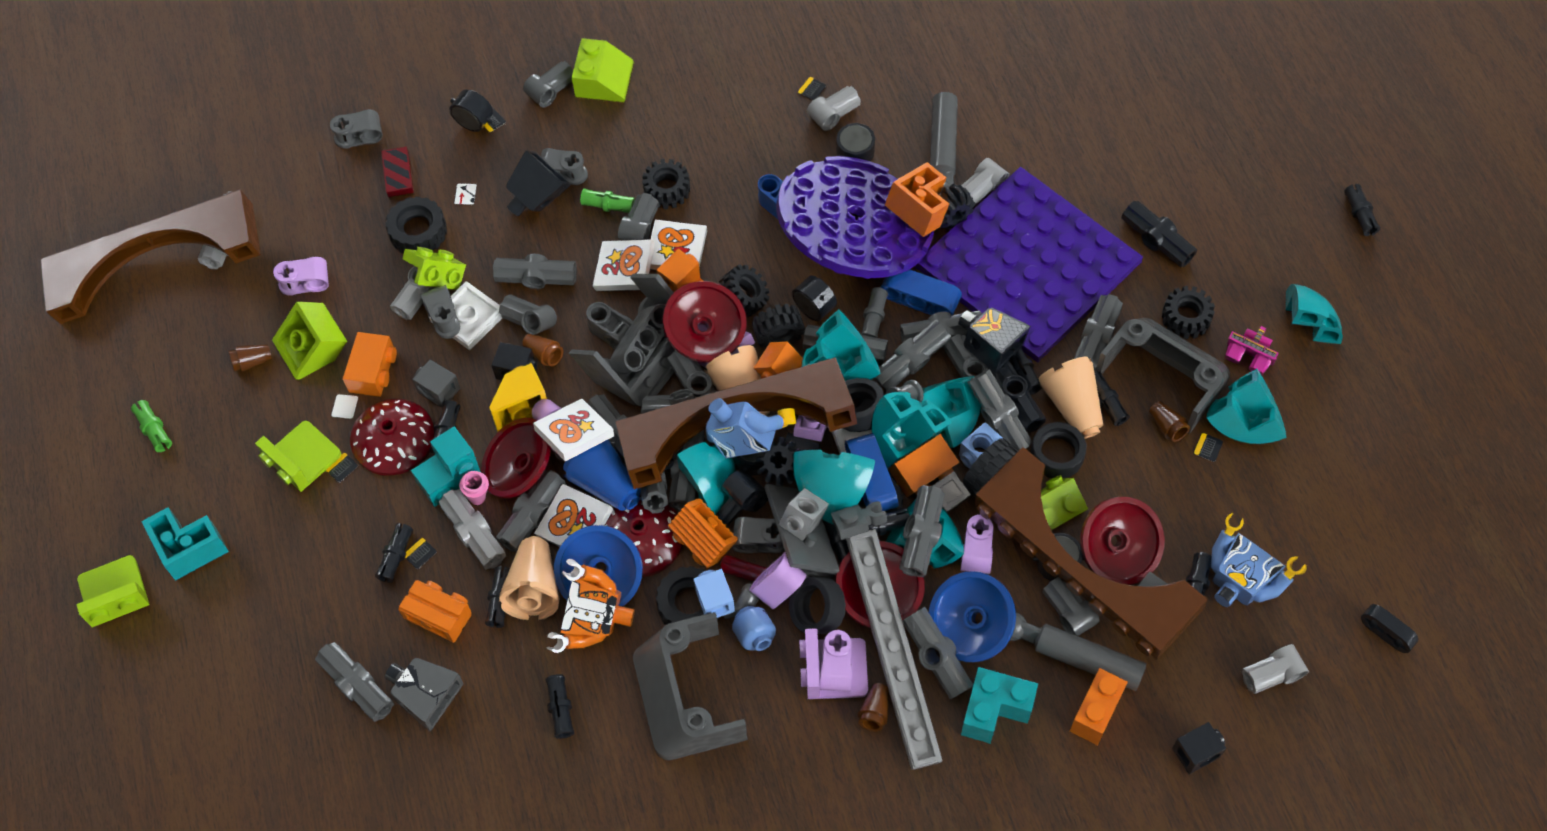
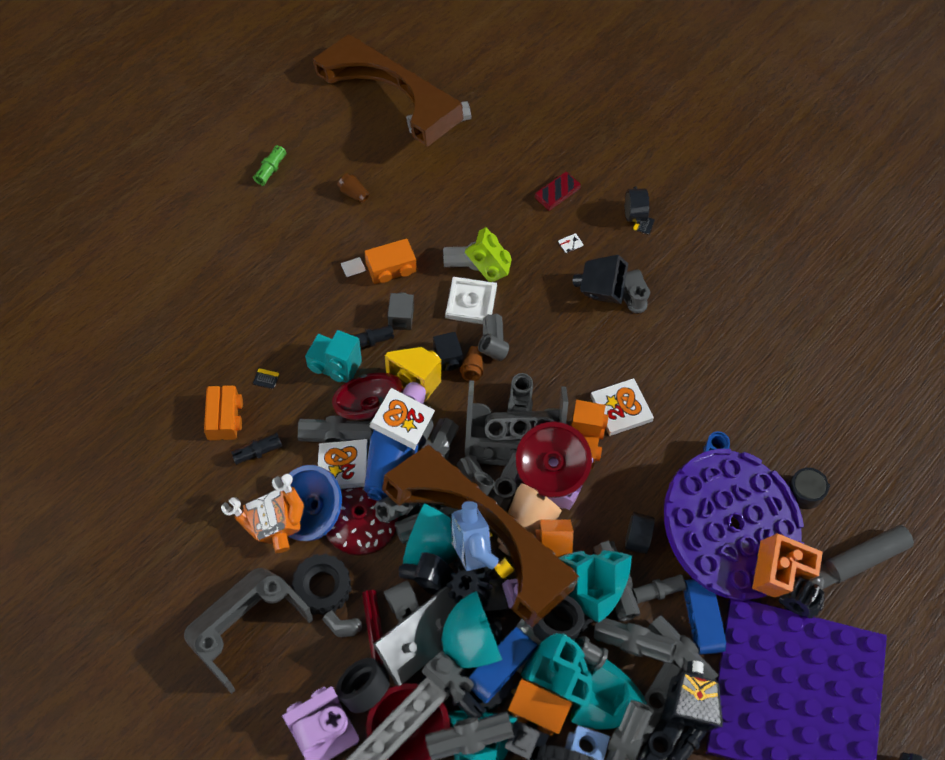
camera: 55 degrees right, 0 degrees up
(111, 591) = (137, 214): lime bracket -> none
(186, 547) = (188, 230): teal brick -> none
(299, 455) = (294, 260): lime bracket -> none
(304, 276) = (434, 182): lavender piece -> none
(308, 339) = (388, 214): lime slope -> none
(342, 467) = (305, 292): black sticker -> none
(354, 681) = (142, 393): dark grey piece -> none
(359, 128) = (574, 148): dark grey piece -> none
(393, 449) = (350, 317): dark red dish -> none
(394, 553) = (254, 361): black pin -> none
(410, 209) = (520, 212): black tyre -> none
(424, 689) = (156, 440): dark grey torso -> none
(442, 312) = (458, 280): dark grey piece -> none
(472, 529) = (299, 400): light grey piece -> none
(474, 487) = (328, 381): bright pink cone -> none
(530, 582) = (275, 459): light nougat cone -> none
(535, 271) = (534, 322): dark grey piece -> none
(545, 87) = (693, 240): dark grey piece -> none
(559, 706) = (189, 539): black pin -> none
(601, 71) = (735, 269): lime slope -> none
(606, 200) = (627, 337): bright green pin -> none
(620, 261) = (580, 377): white tile -> none
(638, 223) = (619, 369): dark grey piece -> none
(667, 171) = (673, 357): black tyre -> none
(702, 533) = (379, 562): orange brick -> none
(714, 593) = (326, 598): light blue brick -> none
(751, 283) = (622, 475): black tyre -> none
(753, 628) = (322, 646): medium blue head -> none
(777, 582) = (361, 640): lavender beam -> none
(778, 325) = (594, 519): black tyre -> none
(803, 514) = (437, 626): light grey brick -> none
(812, 88) = (838, 427): black sticker -> none
(829, 110) = (823, 449): light grey piece -> none
(985, 179) = (854, 611): light grey piece -> none

